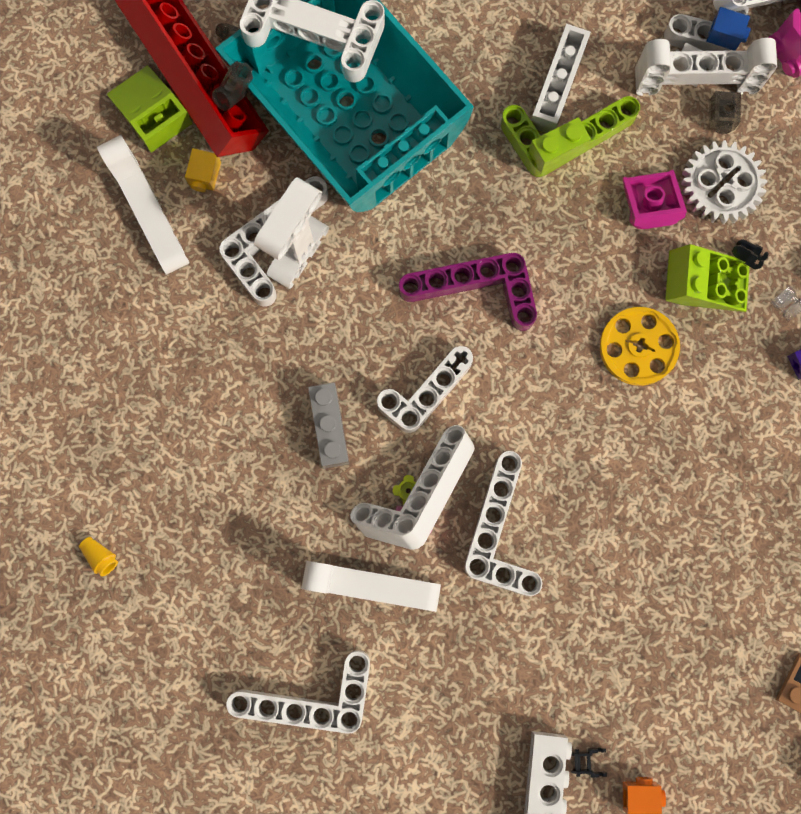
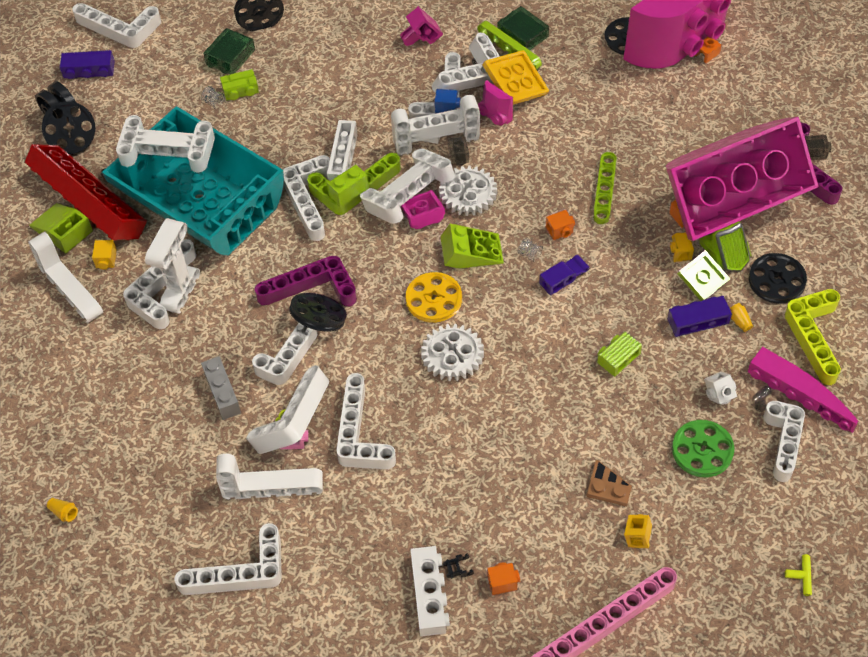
camera: 10 degrees left, 25 degrees down
(233, 86) = (118, 189): clear smoke piece -> none
(478, 341) = (318, 312): none -> black wedge
(491, 137) = (294, 182): none -> white beam
(626, 453) = (439, 361): none -> white gear
(676, 135) = (388, 201): none -> white beam
(749, 253) = (496, 227): black piece -> none

